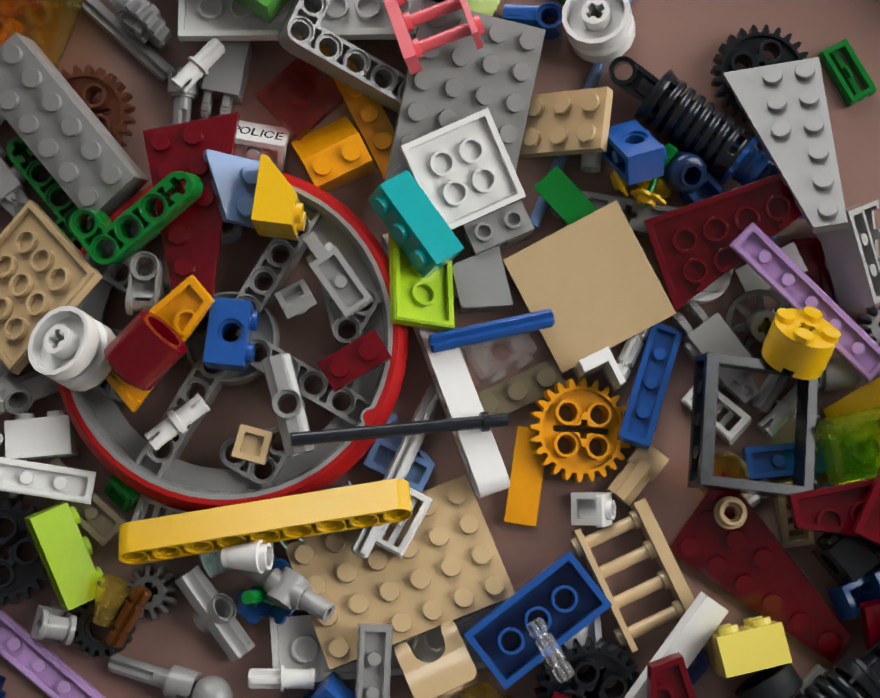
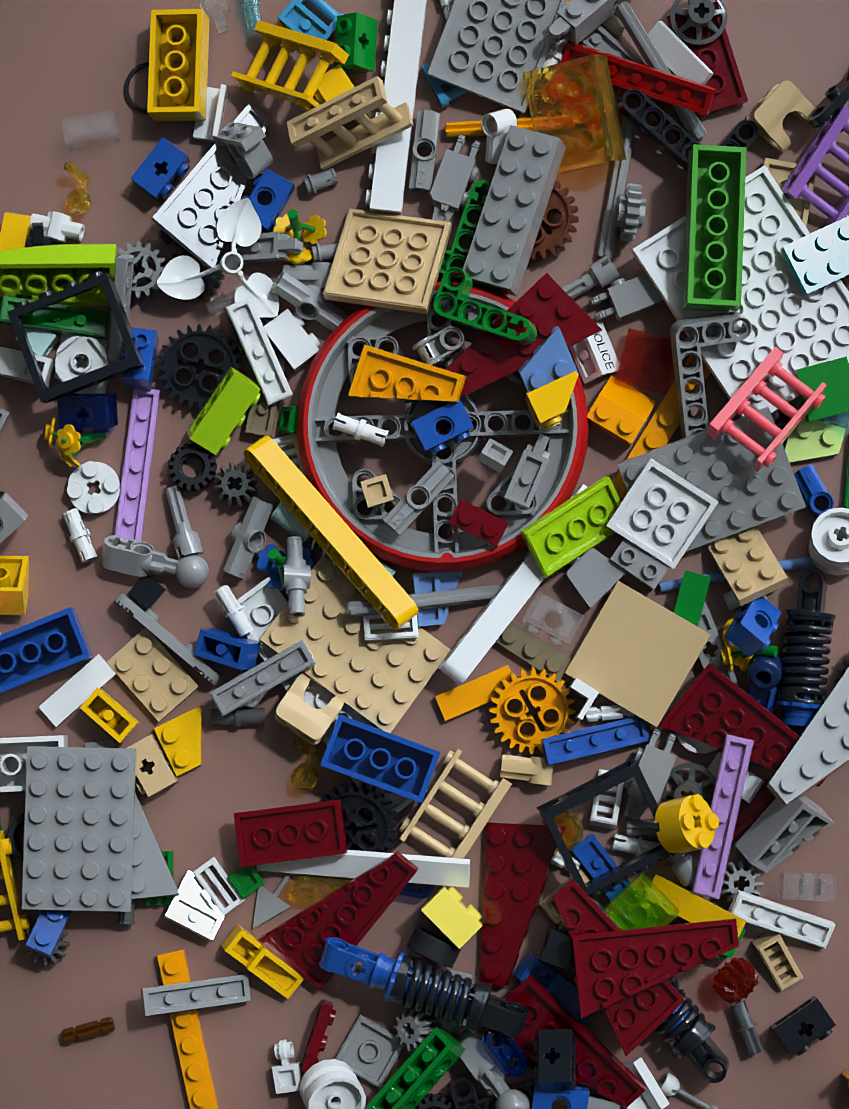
camera: 65 degrees right, 5 degrees up
(54, 625) = (173, 434): light grey piece -> none
(70, 348) = (364, 329): white wheel -> none
(109, 598) = (214, 460): clear yellow cone -> none
(128, 616) = (207, 481): reddish brown axle -> none
(144, 351) = (393, 380): dark red piece -> none
(198, 65) = (621, 276): white axle -> none
(250, 556) = (300, 536): white cone -> none
(415, 223) = (601, 503): teal brick -> none
(482, 422) = (492, 638): black bar -> none
(491, 330) = (560, 603): blue axle -> none
(550, 649) = (365, 778): clear axle -> none
(592, 508) = (482, 752): white bracket -> none
(739, 509) = (545, 852): tan plate -> none

